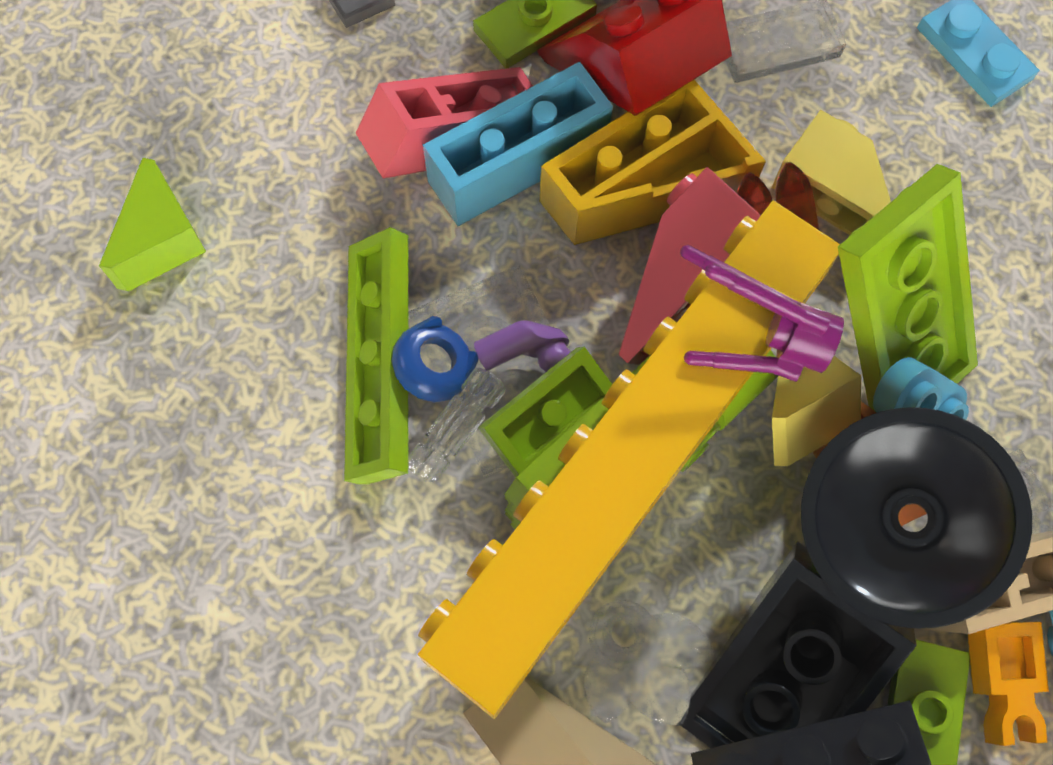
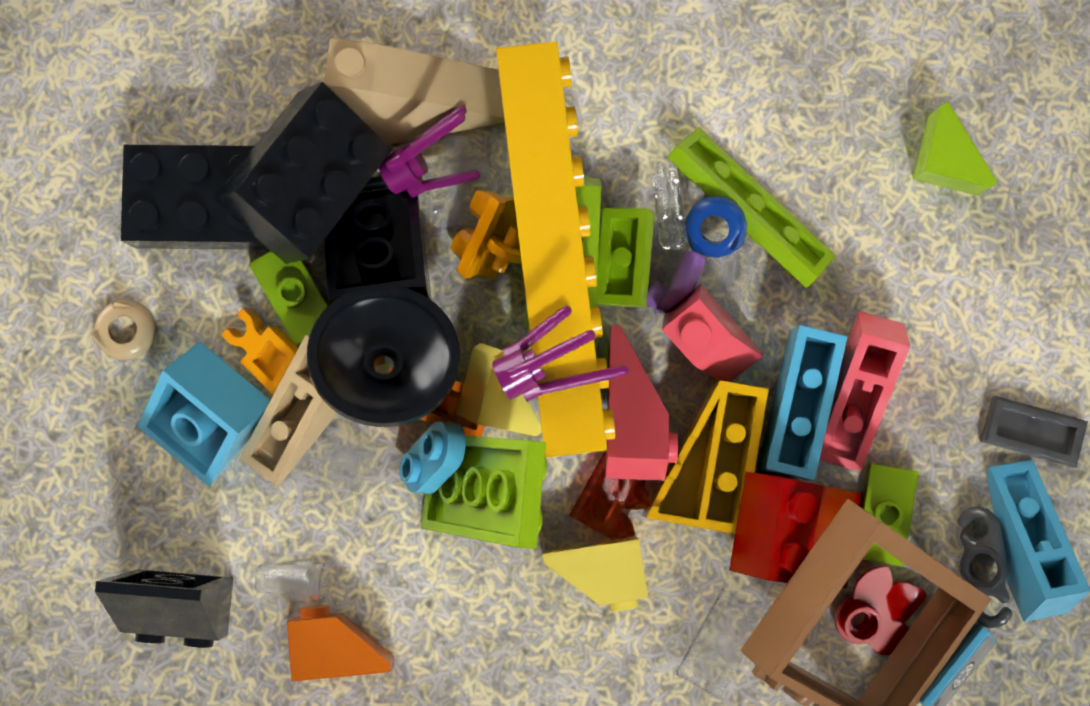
camera: 135 degrees right, 15 degrees up
(542, 276) = (710, 336): none -> coral slope
(661, 551) = (493, 241): none -> light orange hips
(685, 720) = (406, 165): none -> magenta plant

